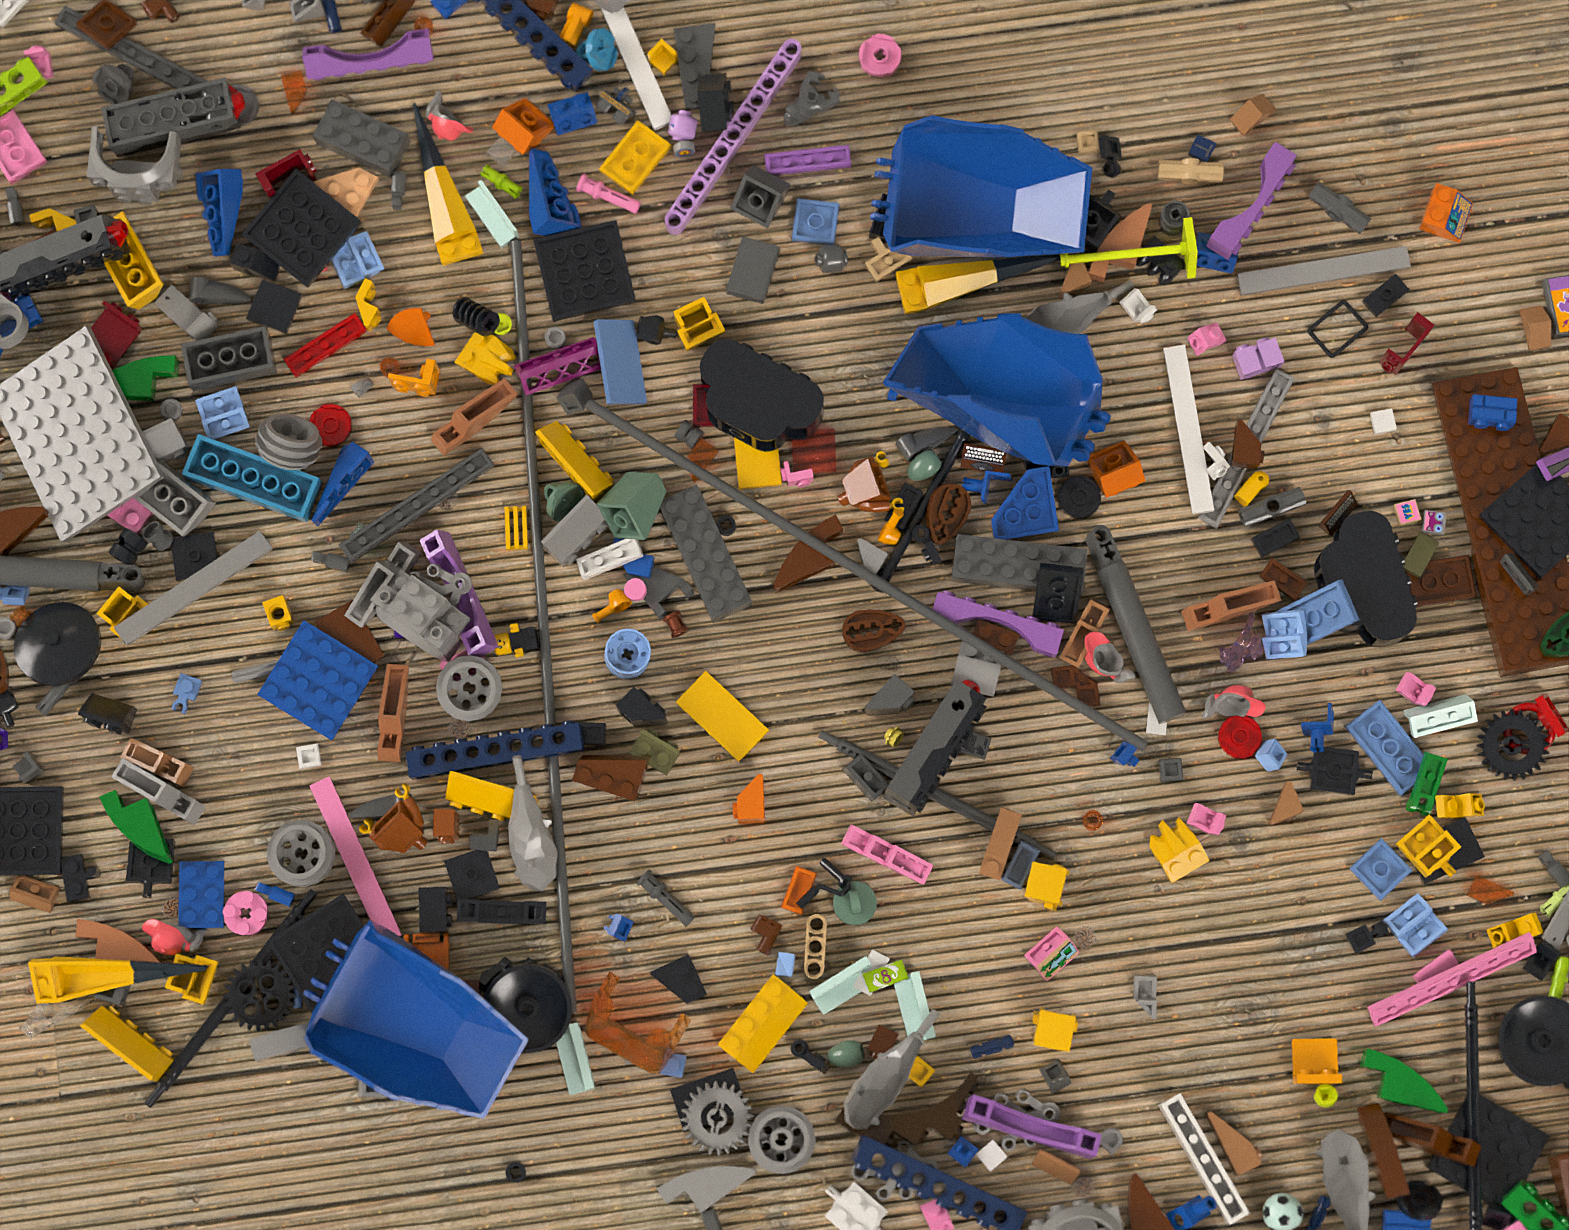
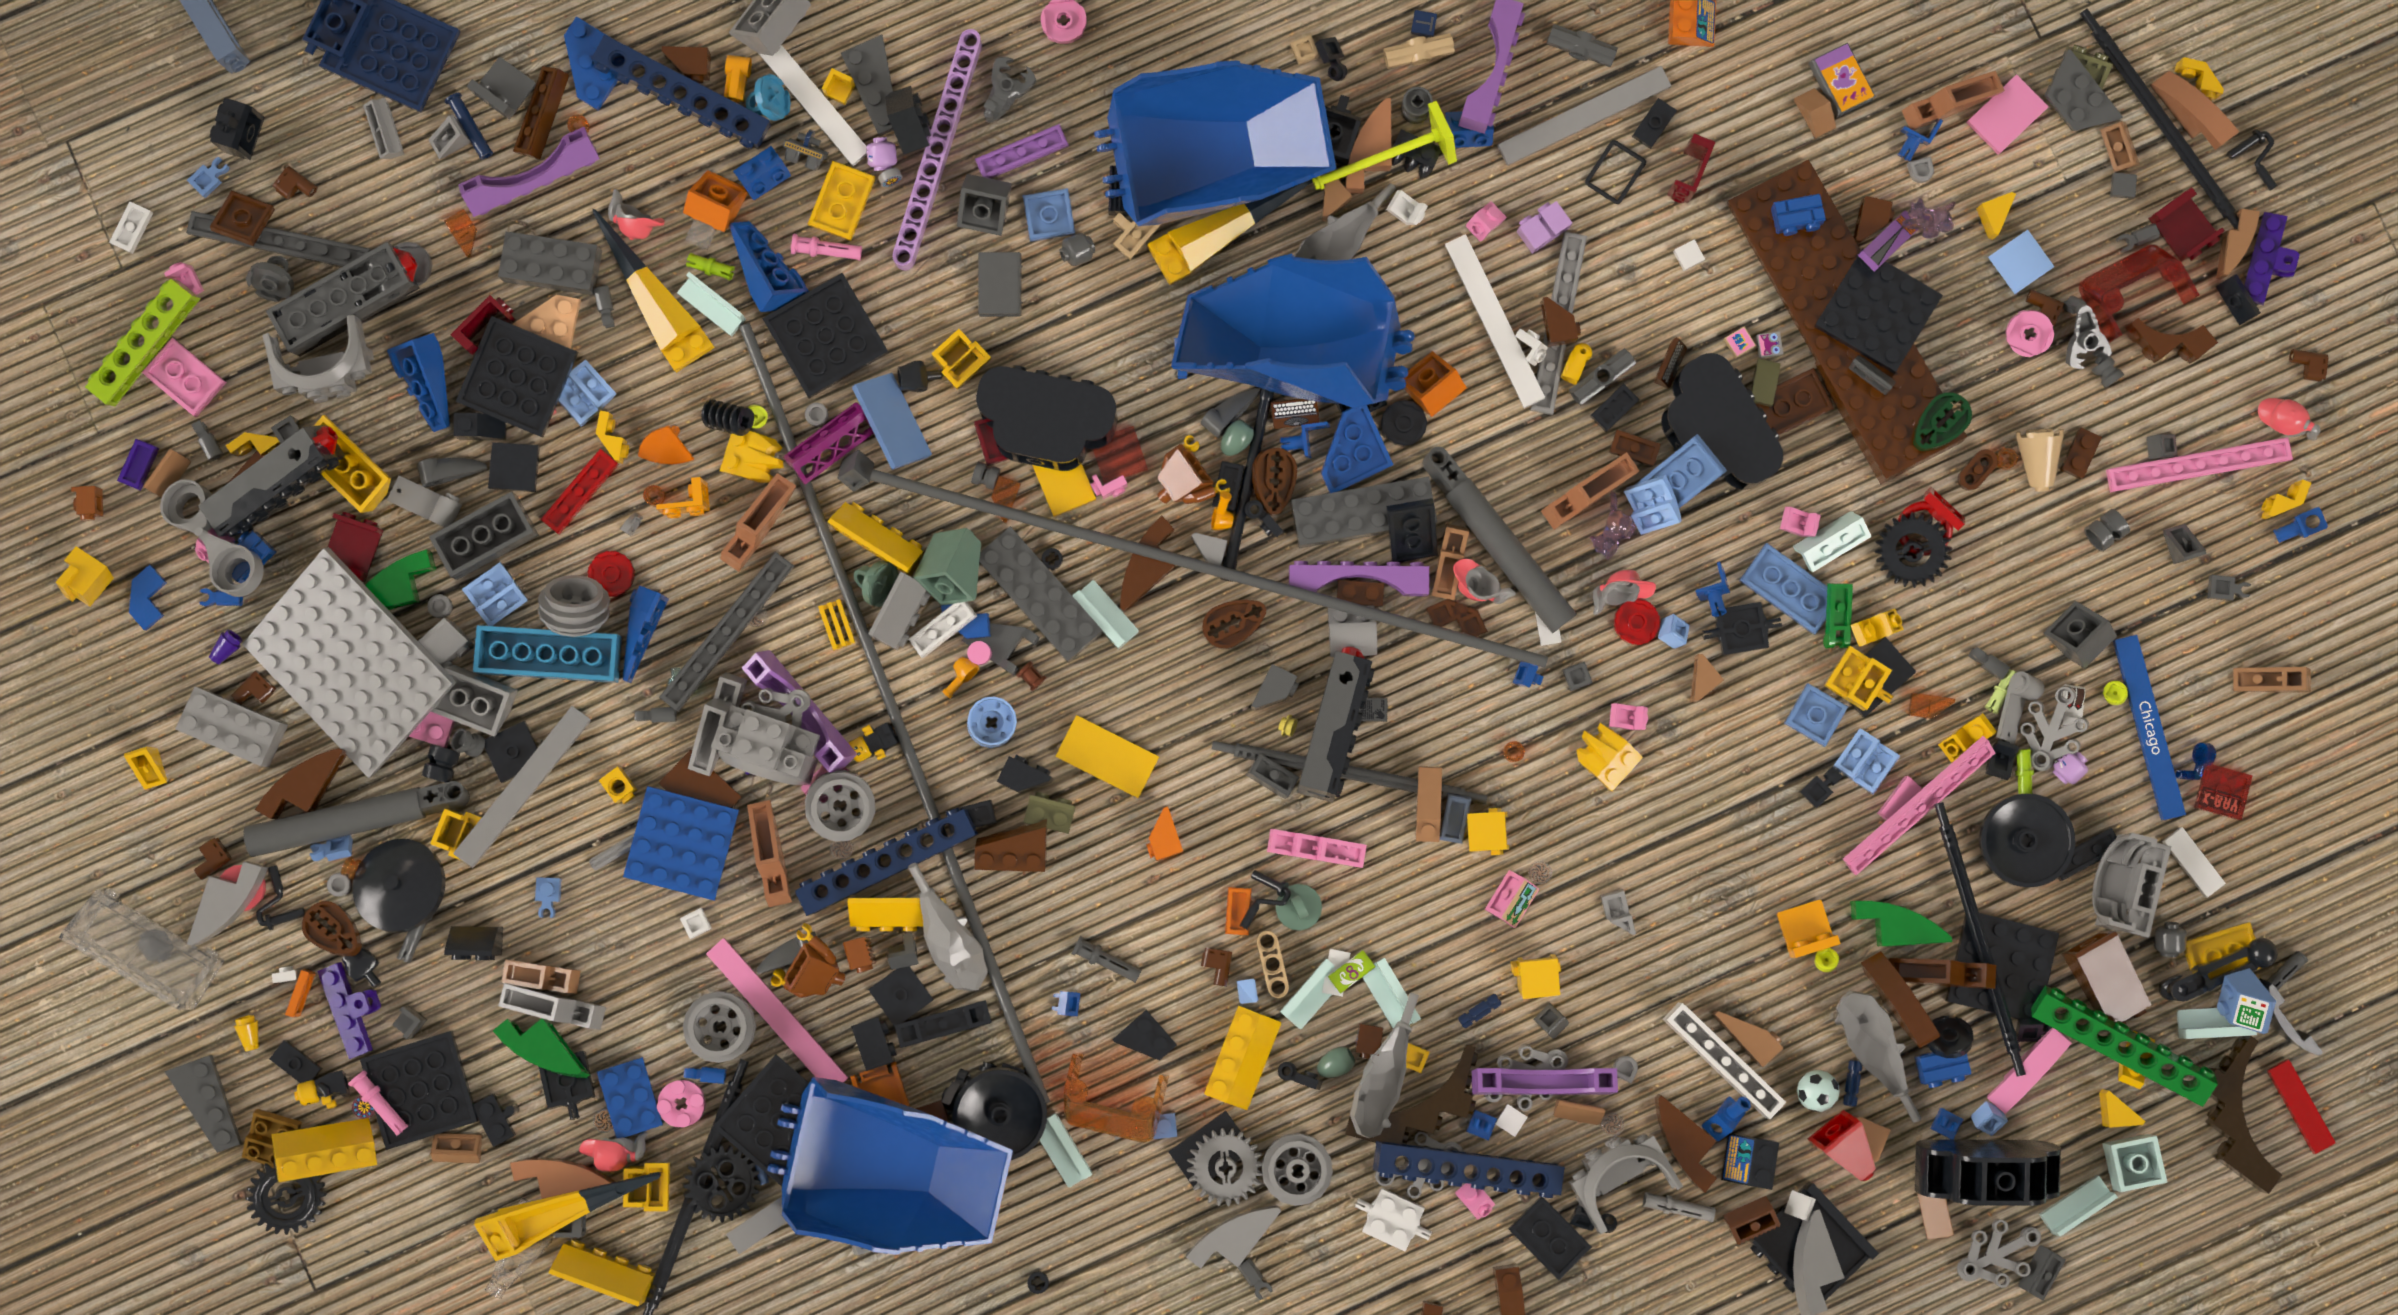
camera: 25 degrees left, 5 degrees up
(759, 589) = (1106, 614): none -> light aqua panel

